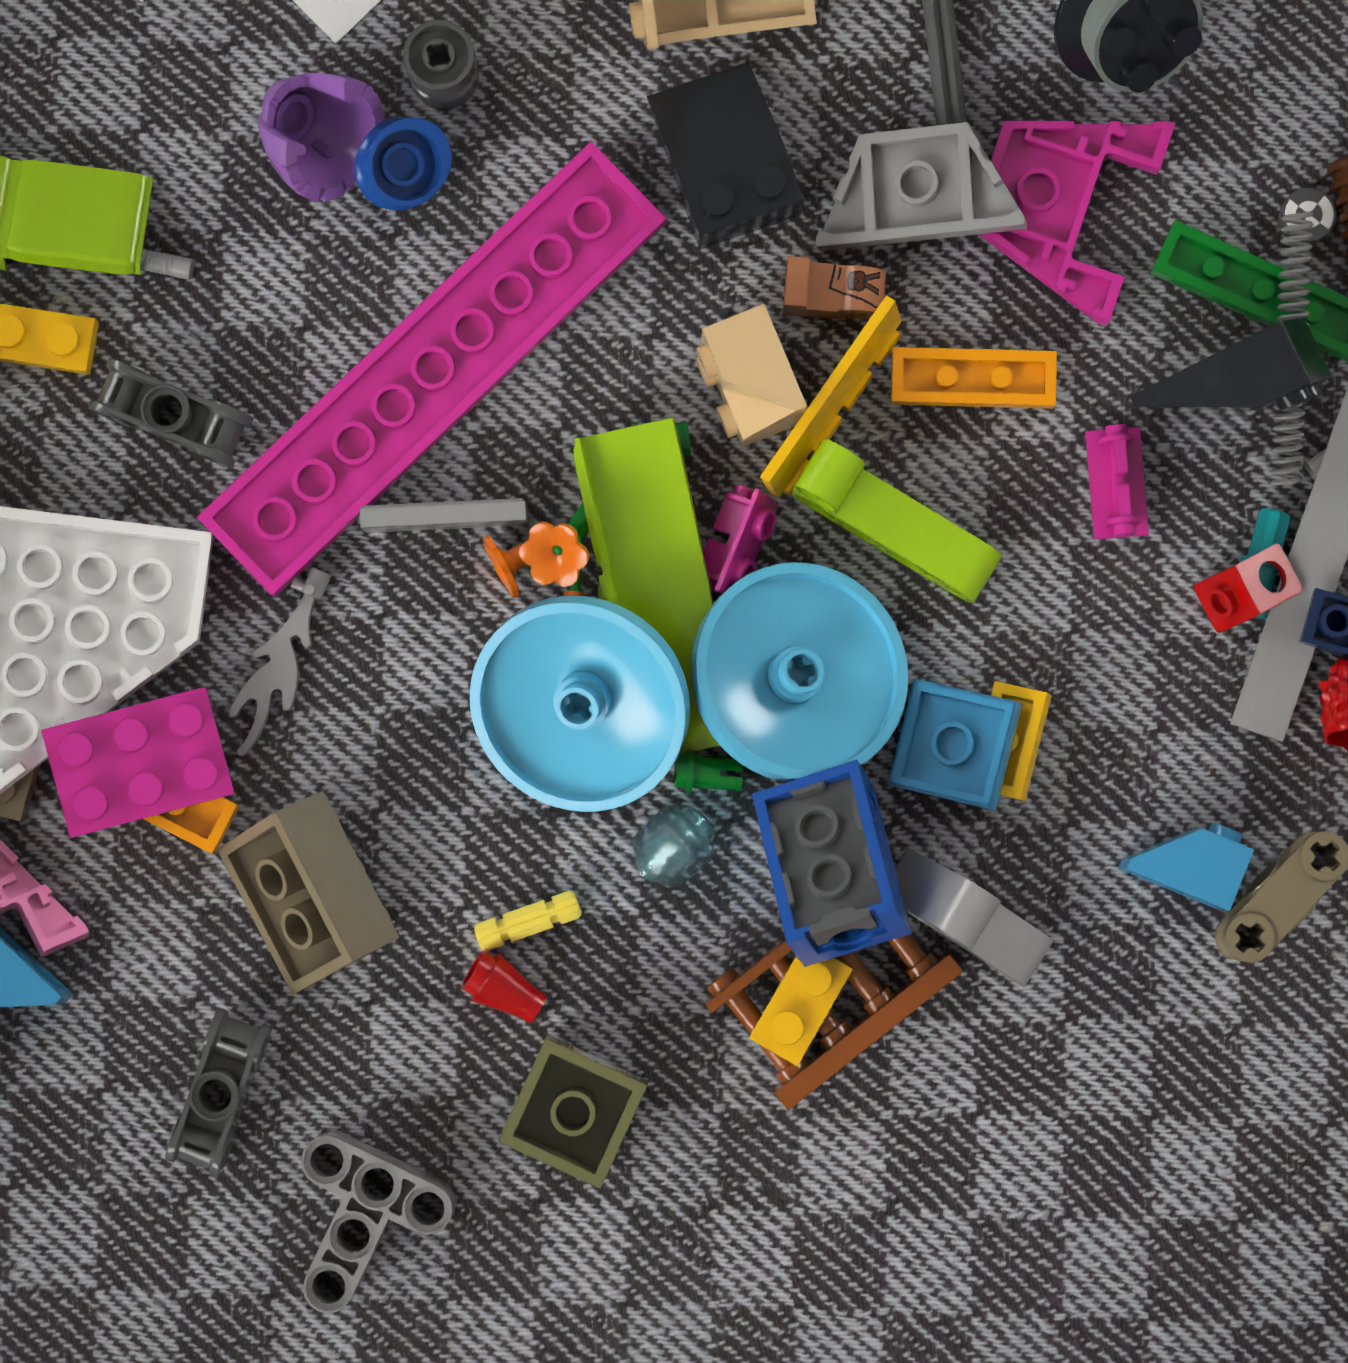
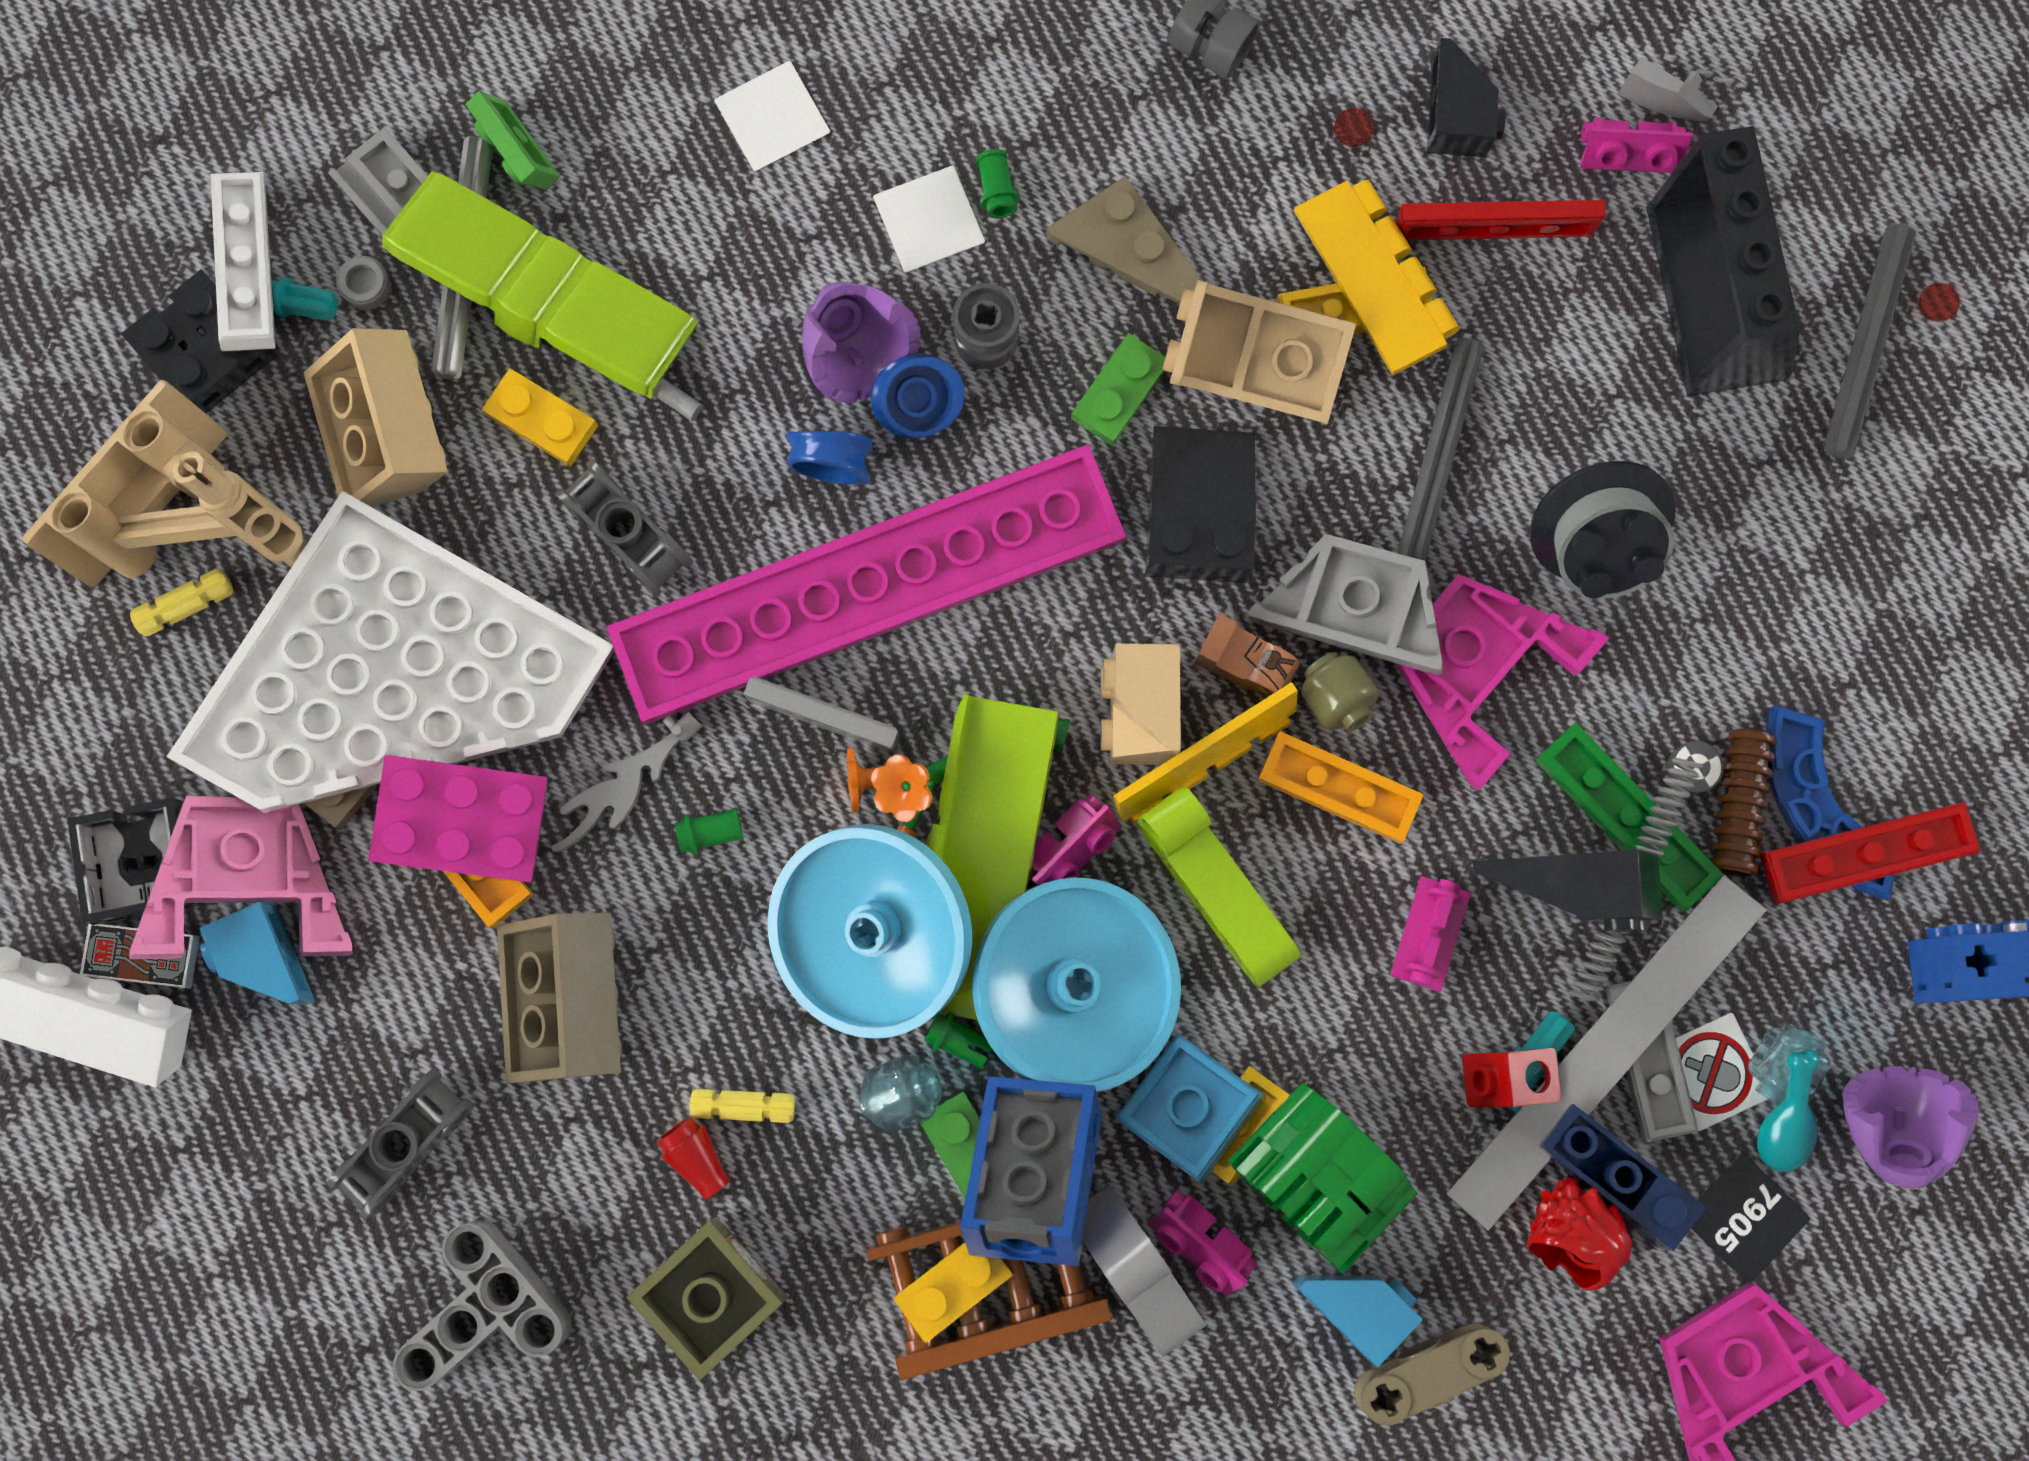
camera: 20 degrees right, 5 degrees down
(343, 258) = (830, 456): none -> blue piece
(382, 673) = (708, 831): none -> green pin
(598, 73) = (1119, 389): none -> bright green plate
(743, 864) = (954, 1136): none -> bright green plate
(936, 285) = (1339, 692): none -> olive head
(1042, 877) = (1220, 1261): none -> dark pink hinge
(1107, 754) = (1323, 1177): none -> green piece

